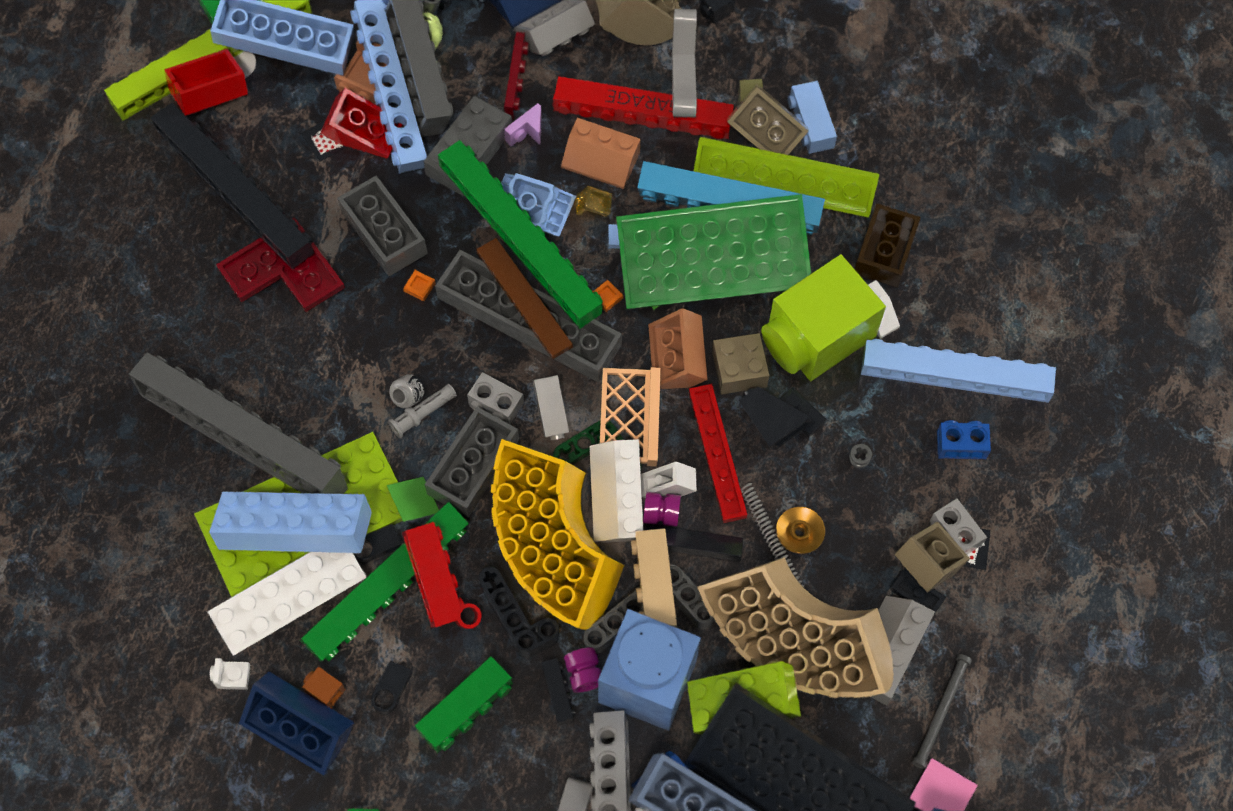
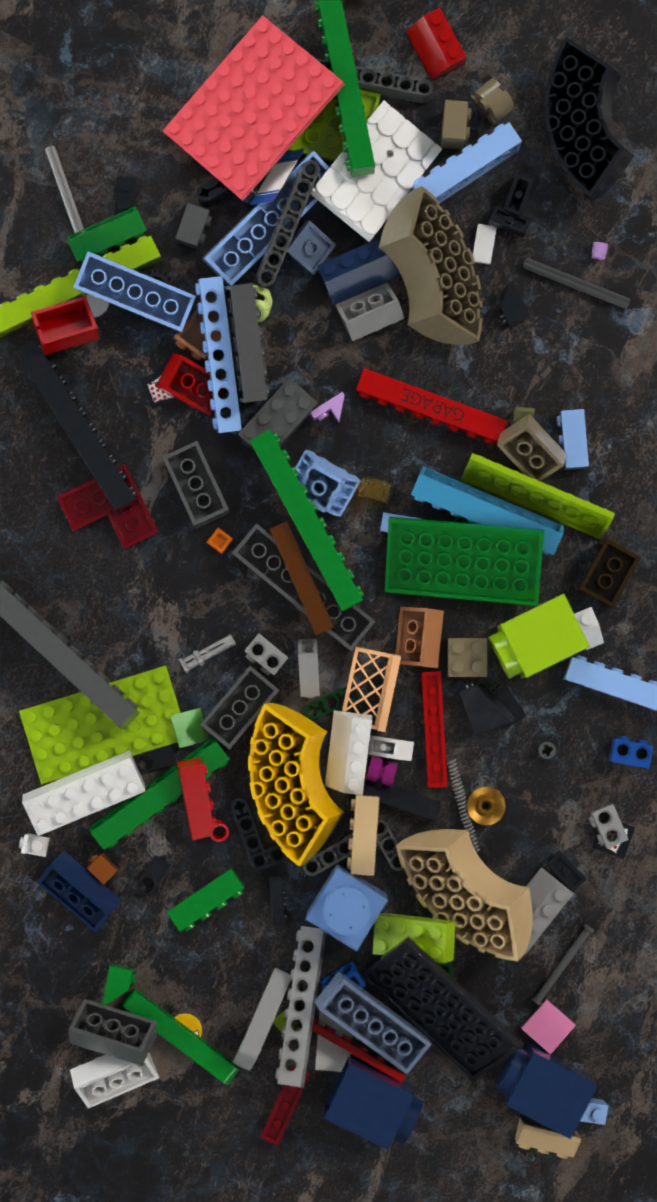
camera: 15 degrees right, 20 degrees up
(291, 522) = (93, 742): light blue brick -> none
(407, 391) = (196, 637): light grey head -> none
(517, 67) = (327, 364): dark red plate -> none
(583, 667) = (299, 889): magenta wheel -> none
(601, 153) = (387, 445): nougat slope -> none
(609, 295) = (370, 575): orange tile -> none
(684, 63) = (471, 383): light grey beam -> none
(932, 556) = (582, 848): dark tan brick -> none

